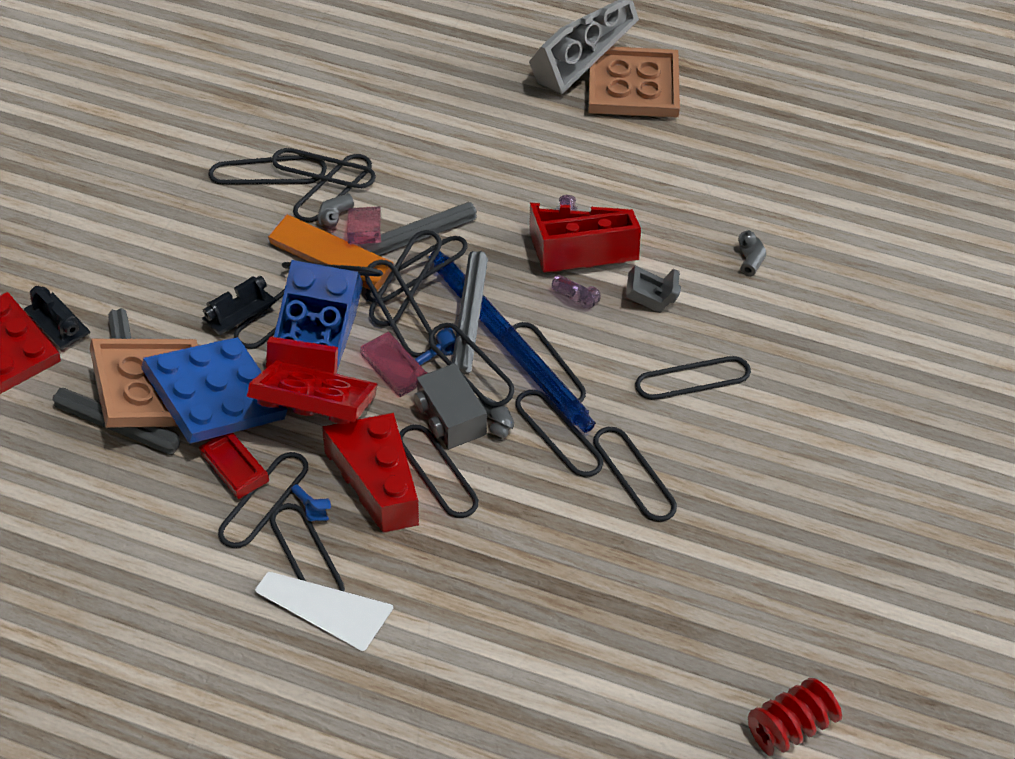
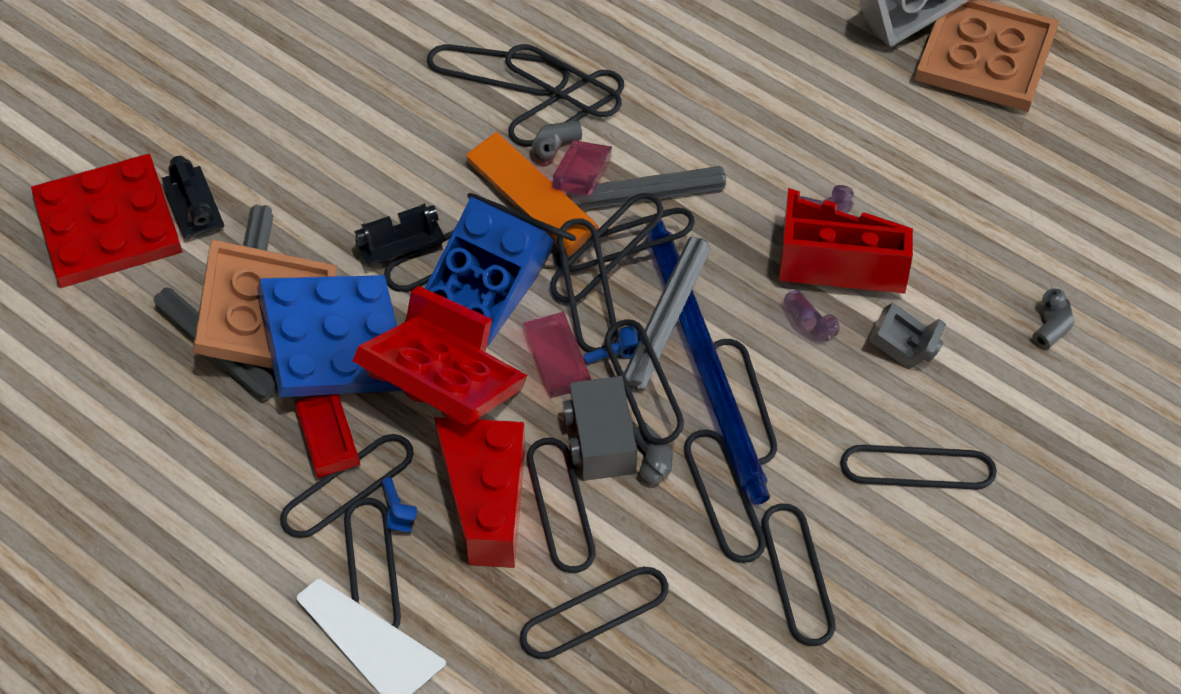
camera: 20 degrees right, 5 degrees up
(508, 546) = (556, 651): none -> black piece

